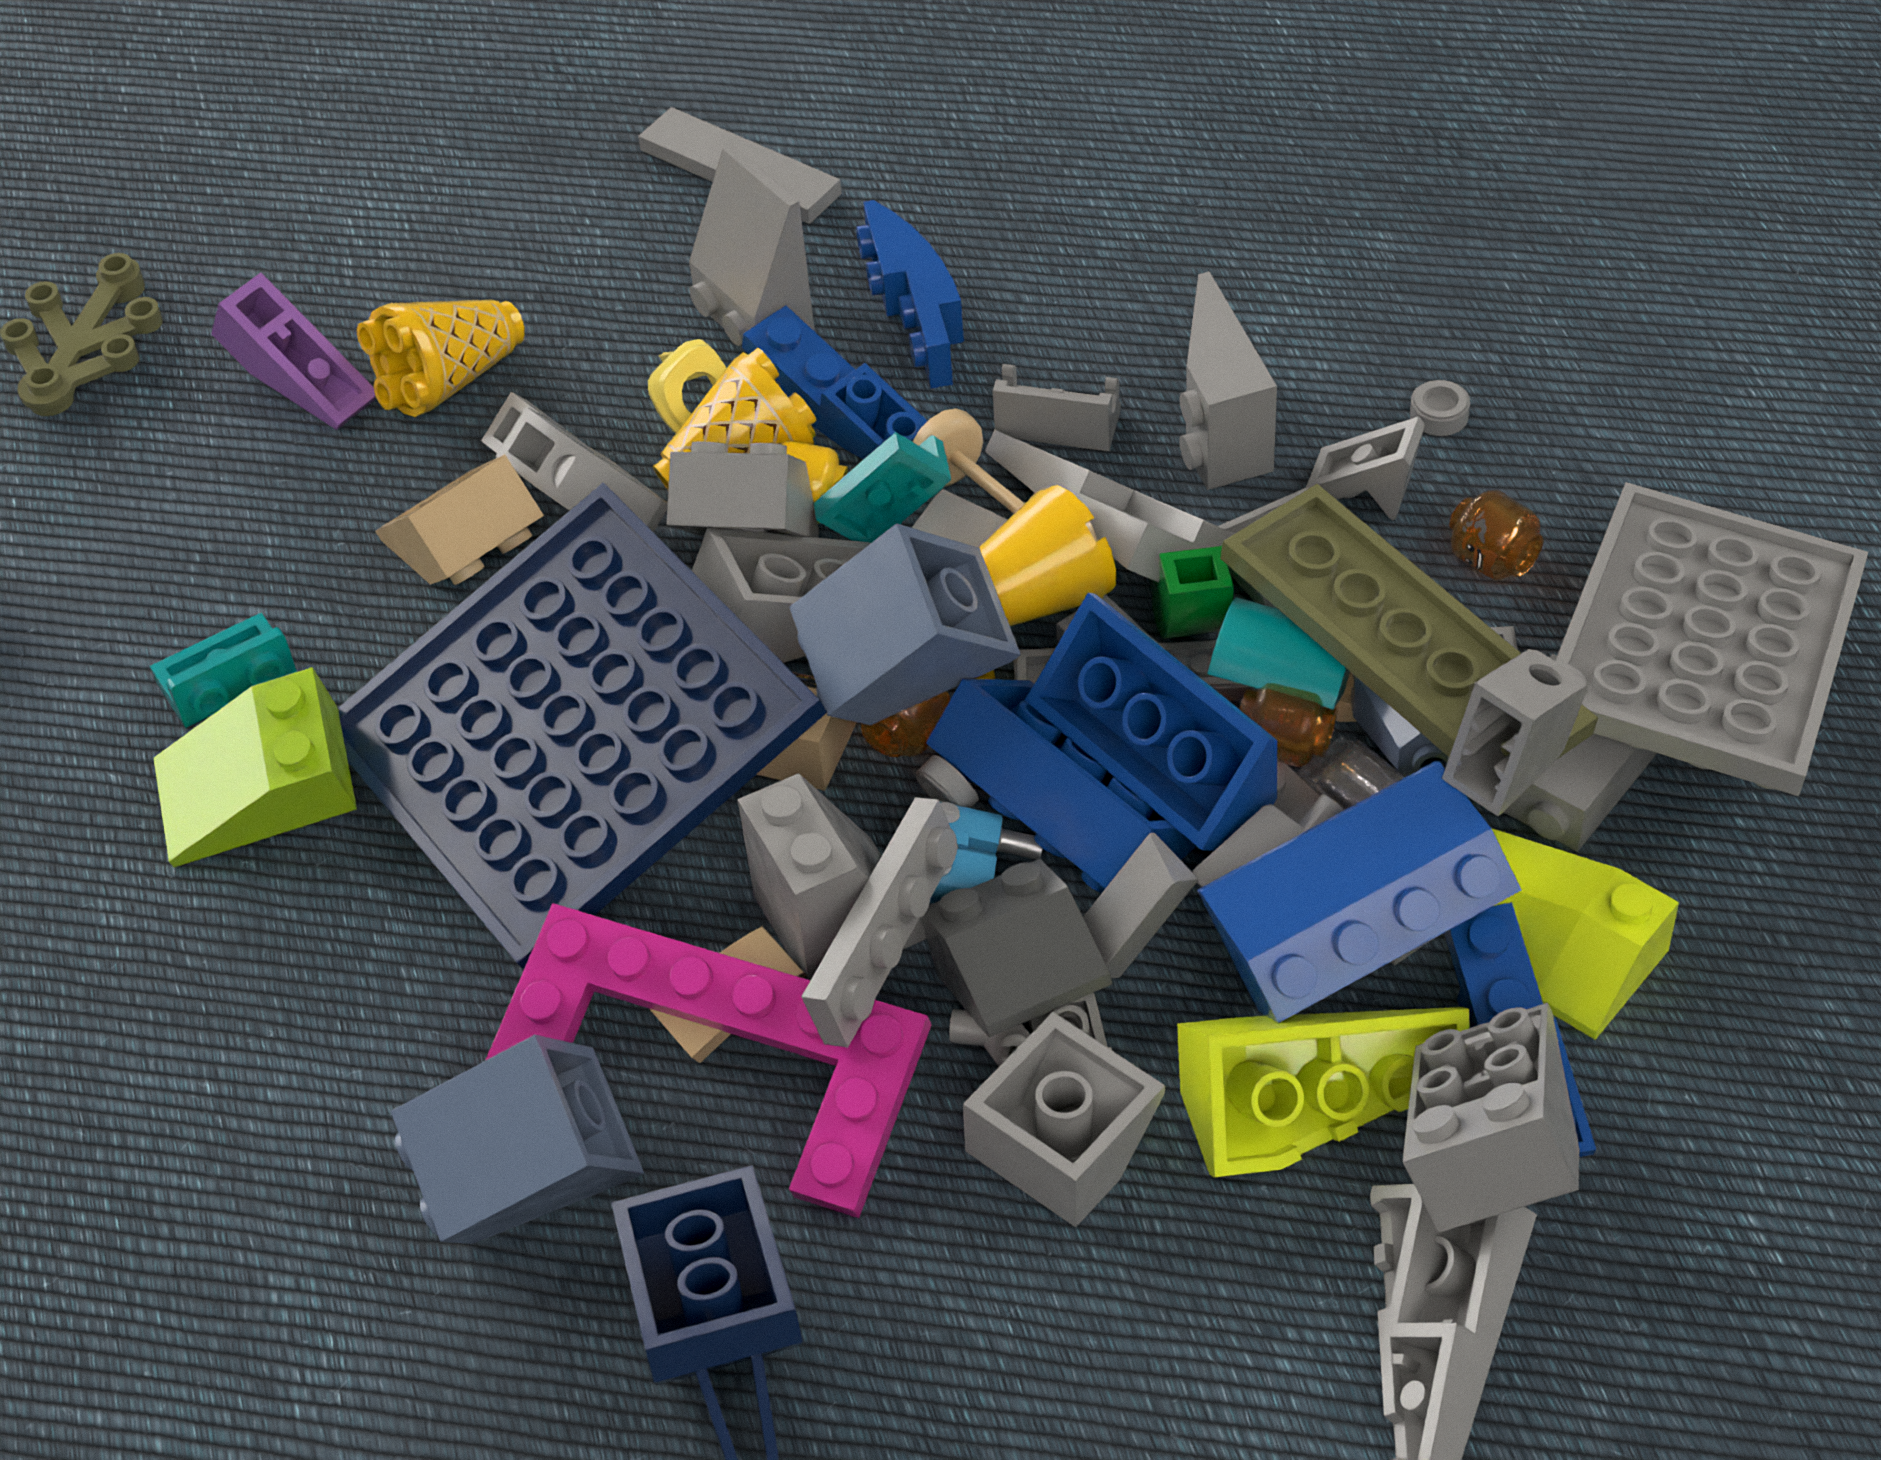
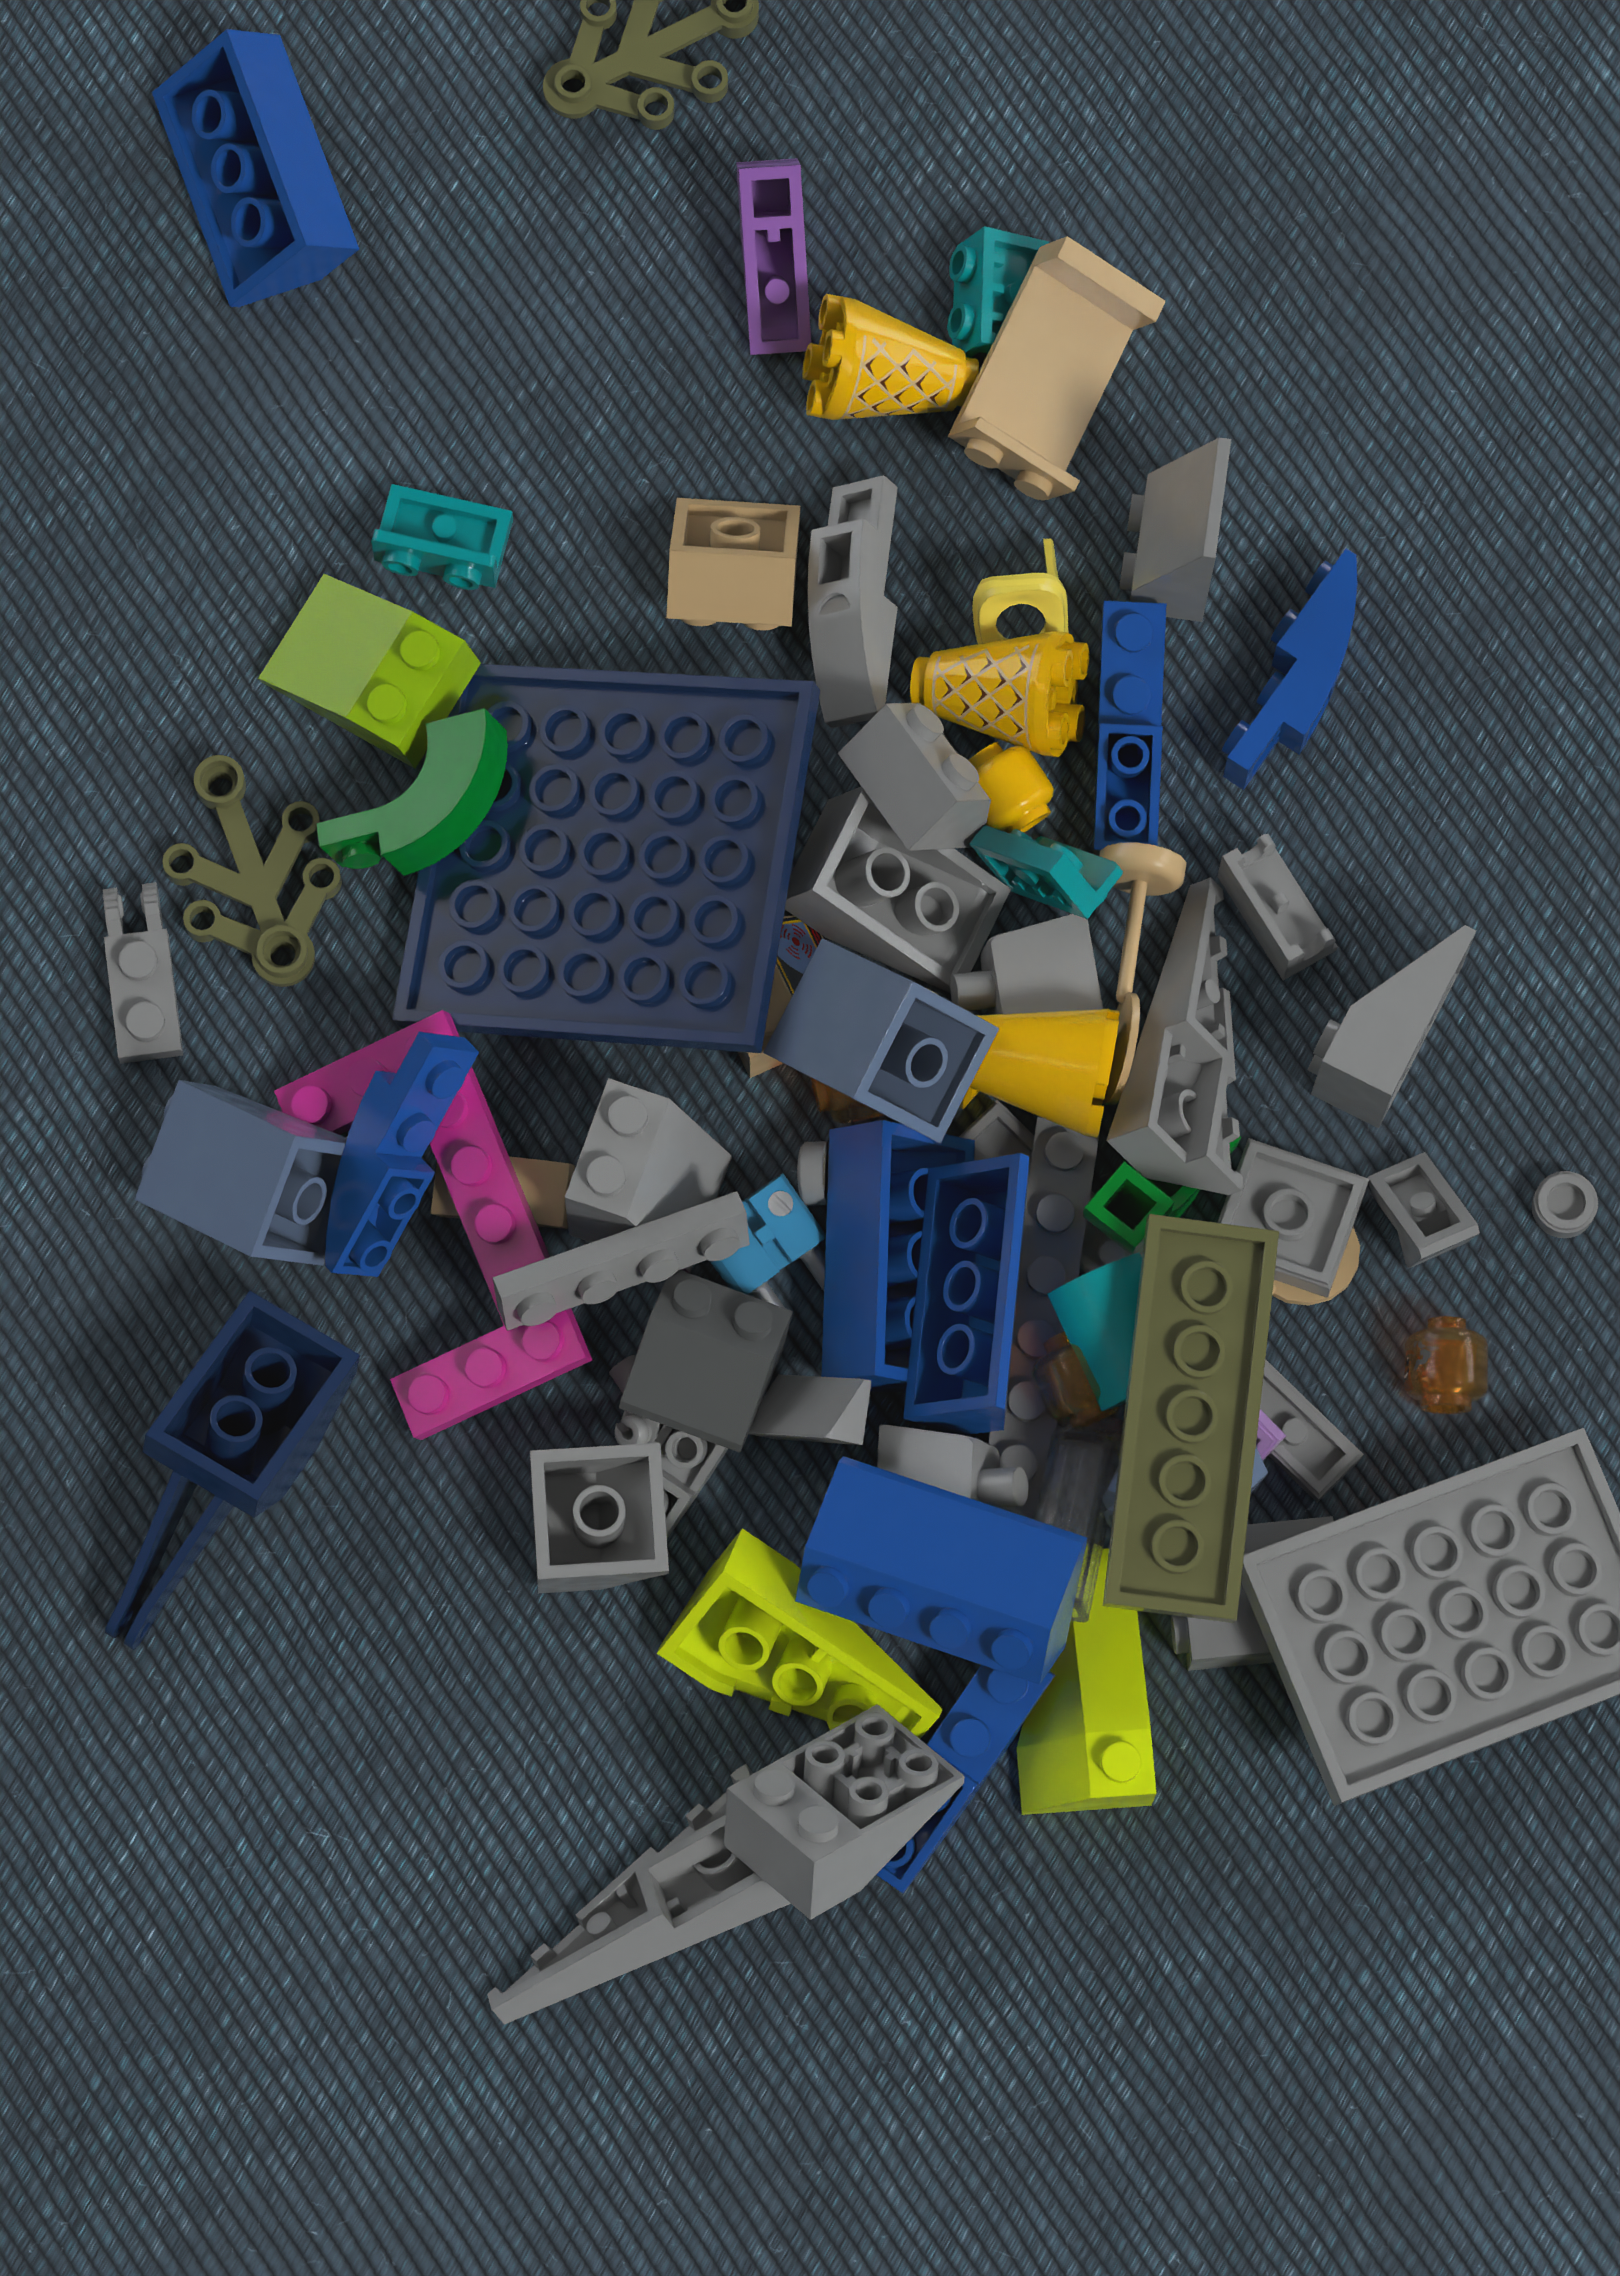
camera: 40 degrees right, 25 degrees up
(281, 1114) = (141, 981): none -> light grey hinge
(300, 979) = (255, 883): none -> olive plant
(402, 808) = (438, 810): none -> green arch
(474, 266) = (986, 281): none -> teal bracket
(550, 267) = (1051, 367): none -> tan panel
(622, 1044) = (382, 1159): none -> blue slope
(698, 147) = (1327, 378): light grey tile -> none
(1533, 708) = (1142, 1583): light grey torso -> none

